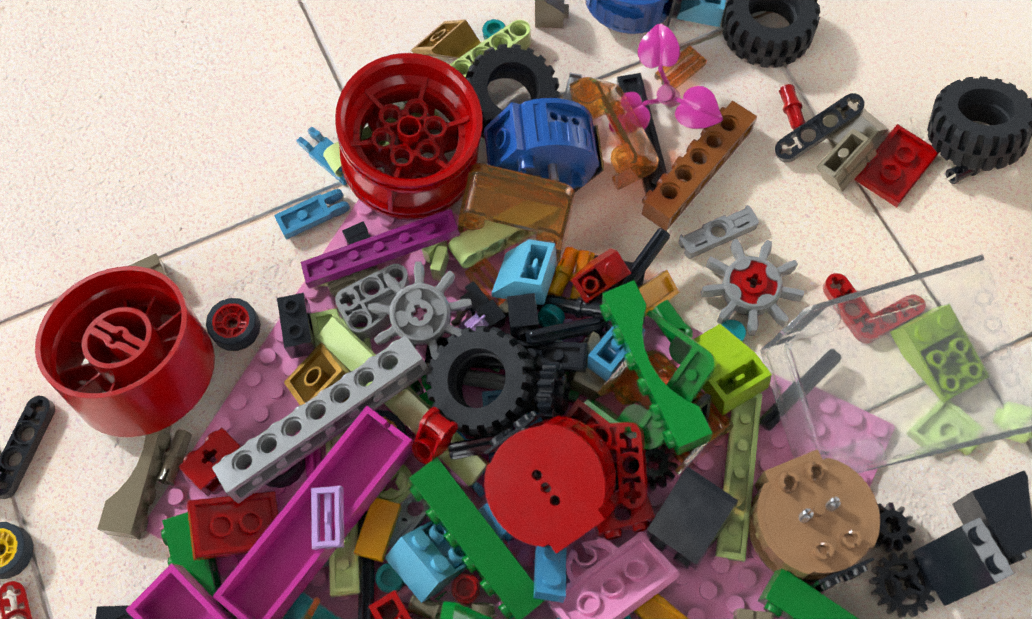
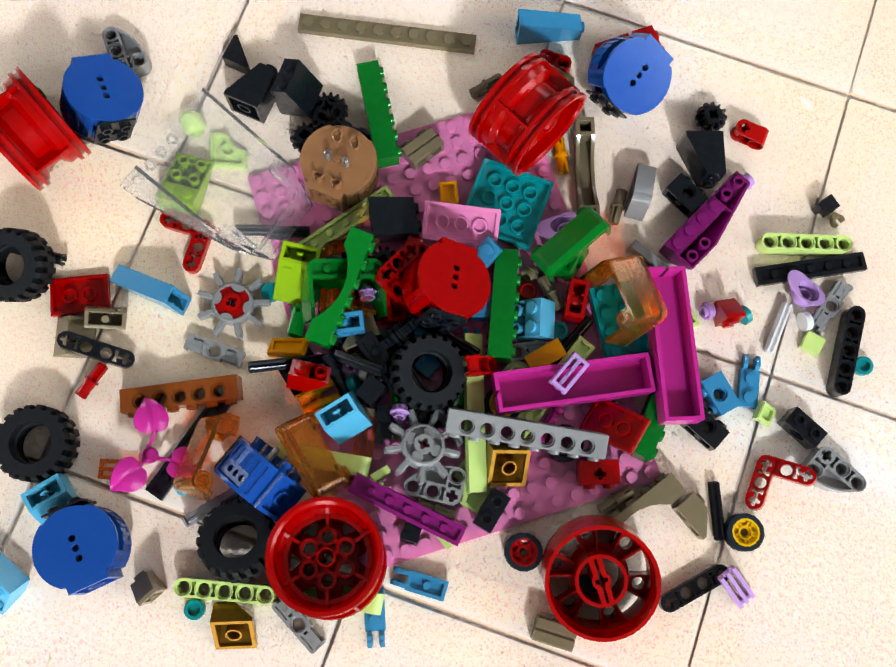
camera: 145 degrees left, 10 degrees up
(51, 548) = (716, 511): none -> black axle
(74, 518) = (693, 514): none -> dark tan slope
(632, 412) = (367, 293): none -> lavender plate
(840, 223) = (151, 289): none -> dark azure slope

